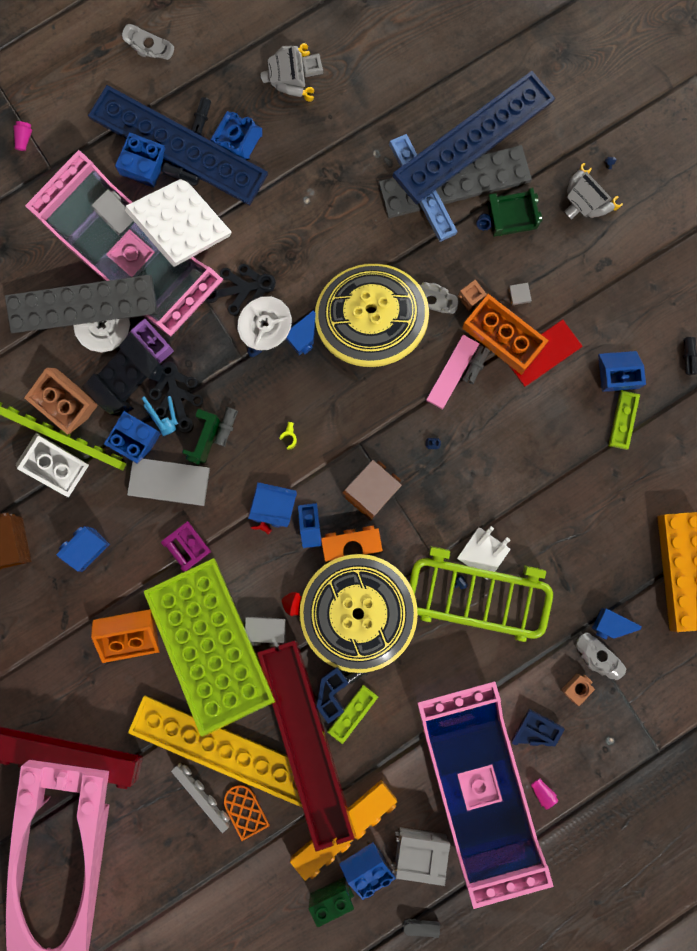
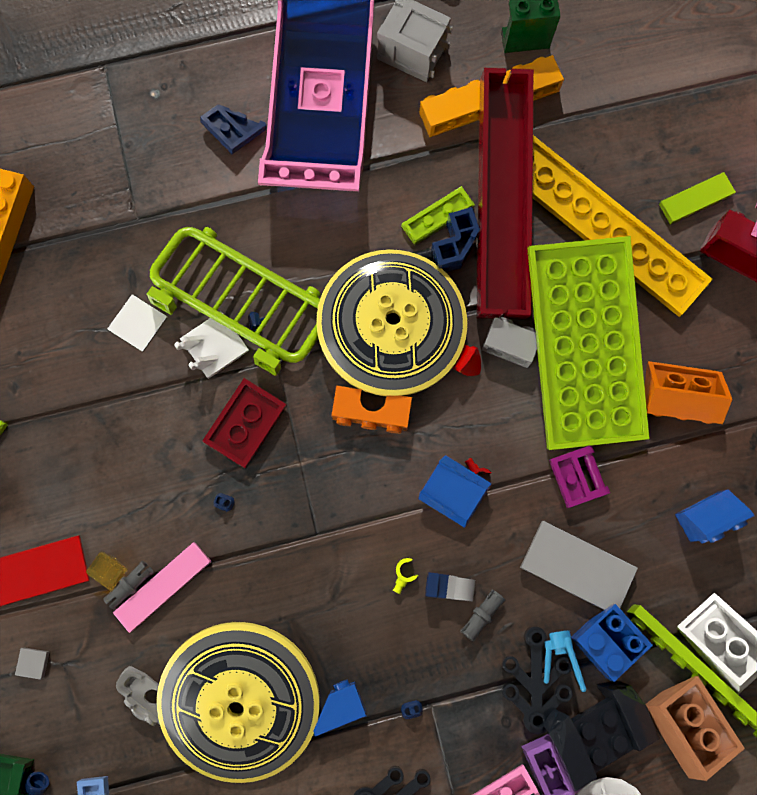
camera: 160 degrees left, 5 degrees down
(155, 799) = (697, 198): none -> lime tile
(206, 439) = (515, 604): dark green panel -> none
(206, 802) = (642, 177): light grey plate -> none
(230, 813) = (614, 155): orange window -> none
(254, 438) = (449, 587): none -> leg
(262, 311) = (380, 760): white piece -> none
(309, 525) = (416, 450): blue slope -> none
(367, 871) = (479, 46): blue slope -> none
(372, 489) = (321, 466): slope -> none
(439, 503) = (244, 423): none -> dark red plate
(472, 295) = (94, 682): nougat brick -> none
(494, 369) = (106, 570): none -> clear yellow slope
(504, 334) = (73, 612): orange brick -> none
(544, 794) = (251, 59): dark pink cone -> none
(547, 551) = (137, 322): none -> white sticker
(569, 689) = (166, 146): nougat brick -> none
(589, 647) = (134, 196): light grey piece -> none
(613, 625) = (95, 210): blue slope -> none

